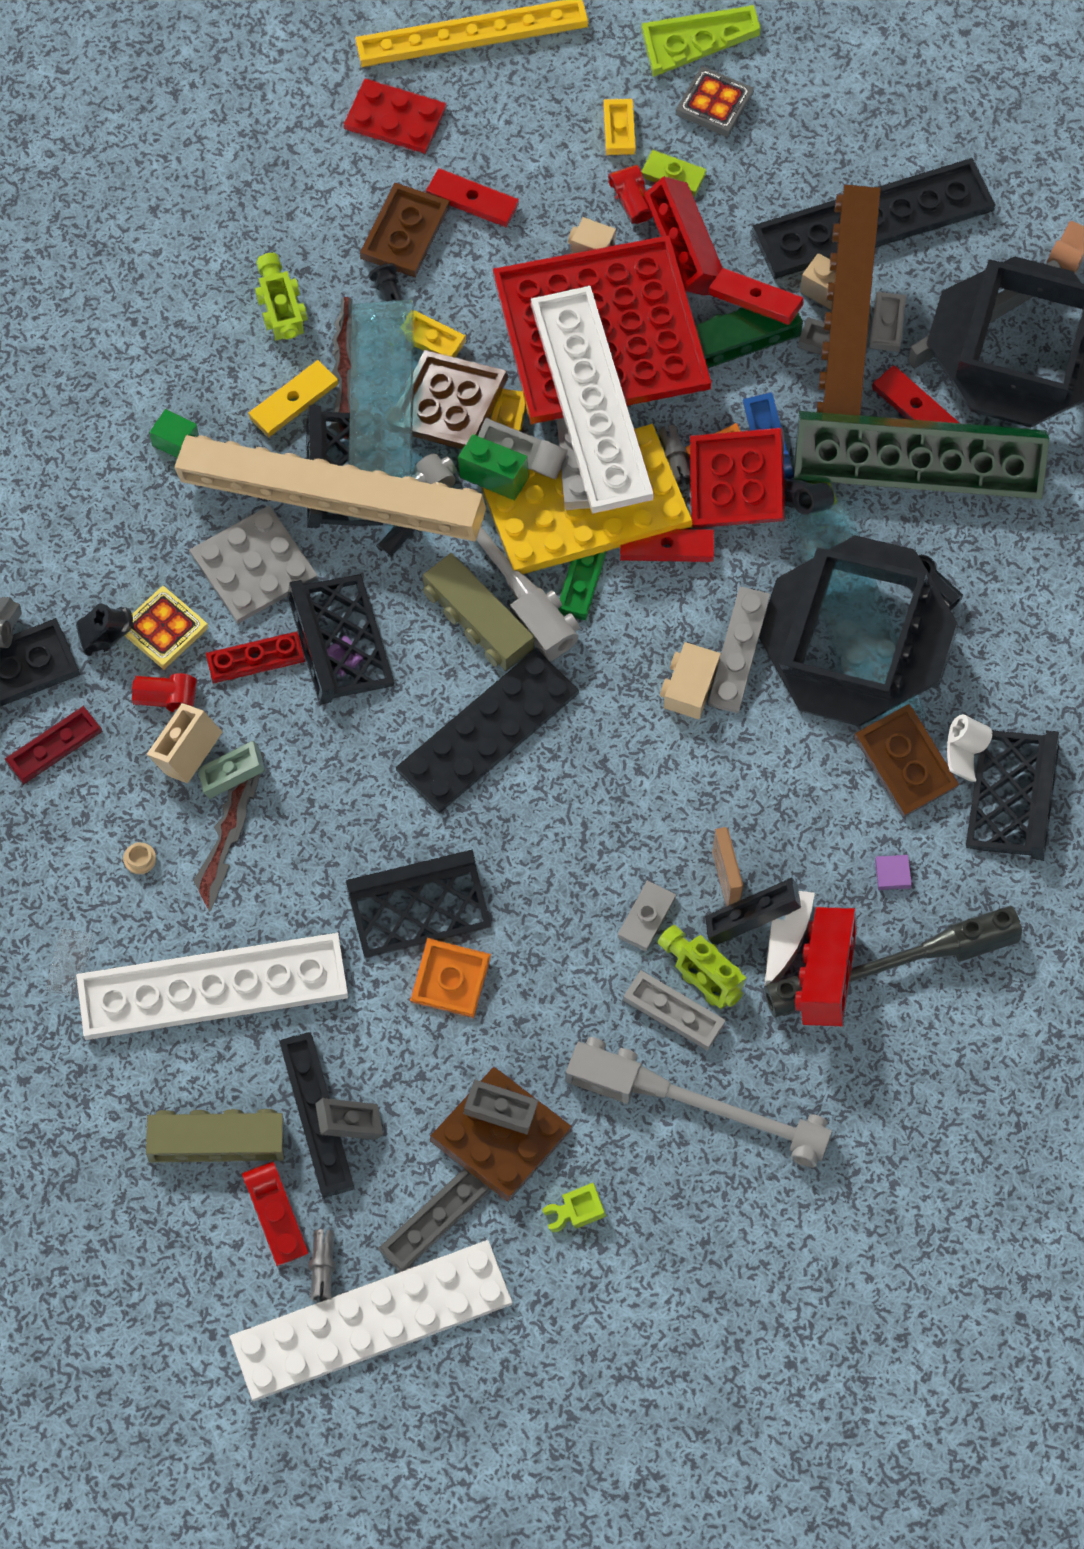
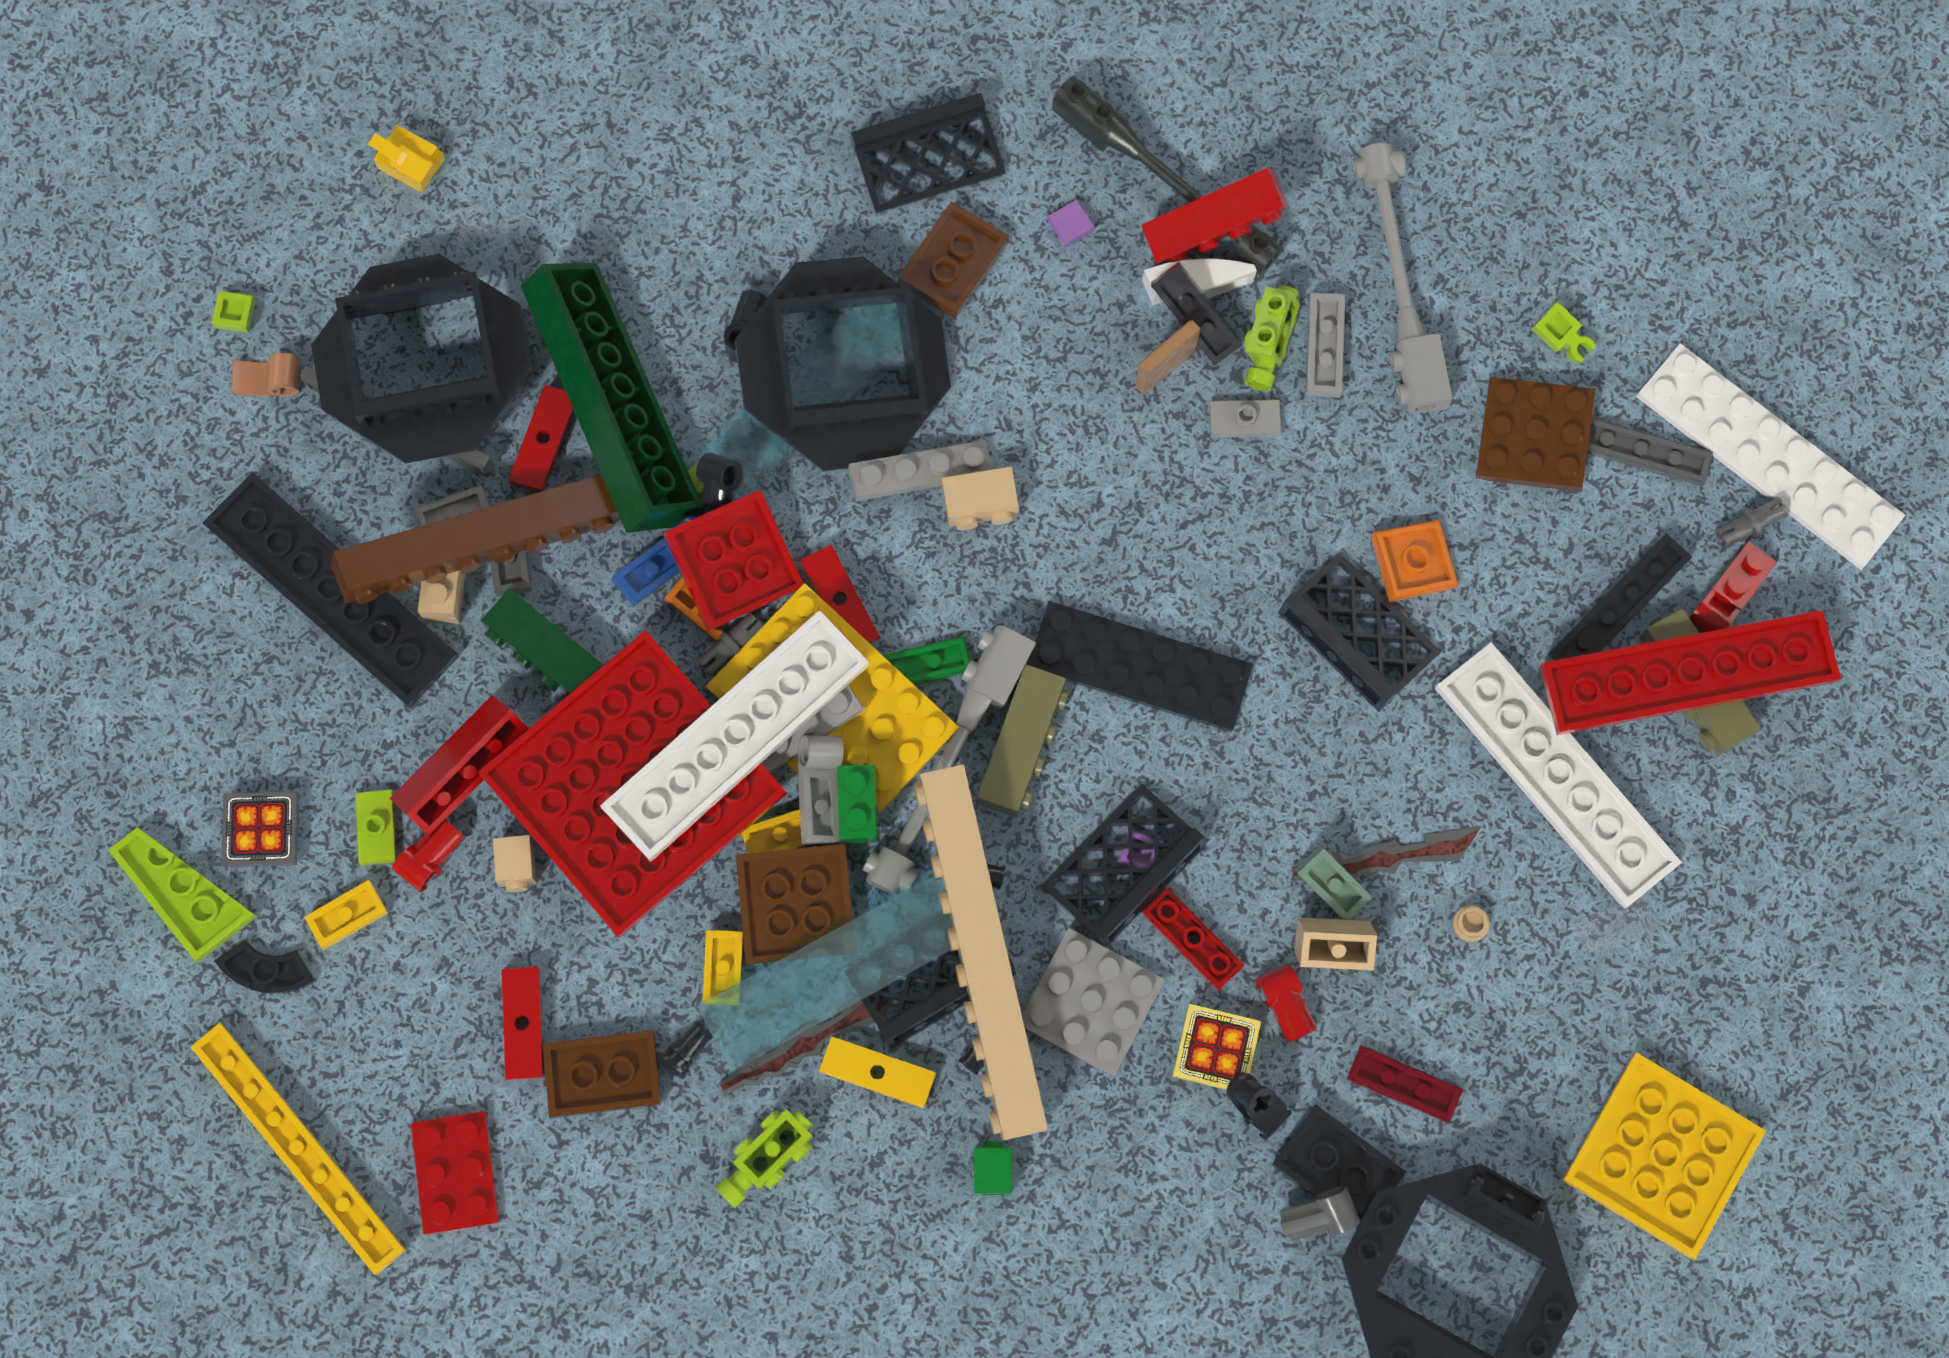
camera: 120 degrees left, 10 degrees up
(222, 1119) = (1690, 672): none -> red plate
(349, 1119) = (1612, 568): dark grey plate -> none
(500, 1107) = (1522, 435): dark grey plate -> none
(609, 65) = (265, 972): none -> black tile
(756, 296) = (509, 620): red tile -> none
(964, 740) = (898, 221): white panel -> none

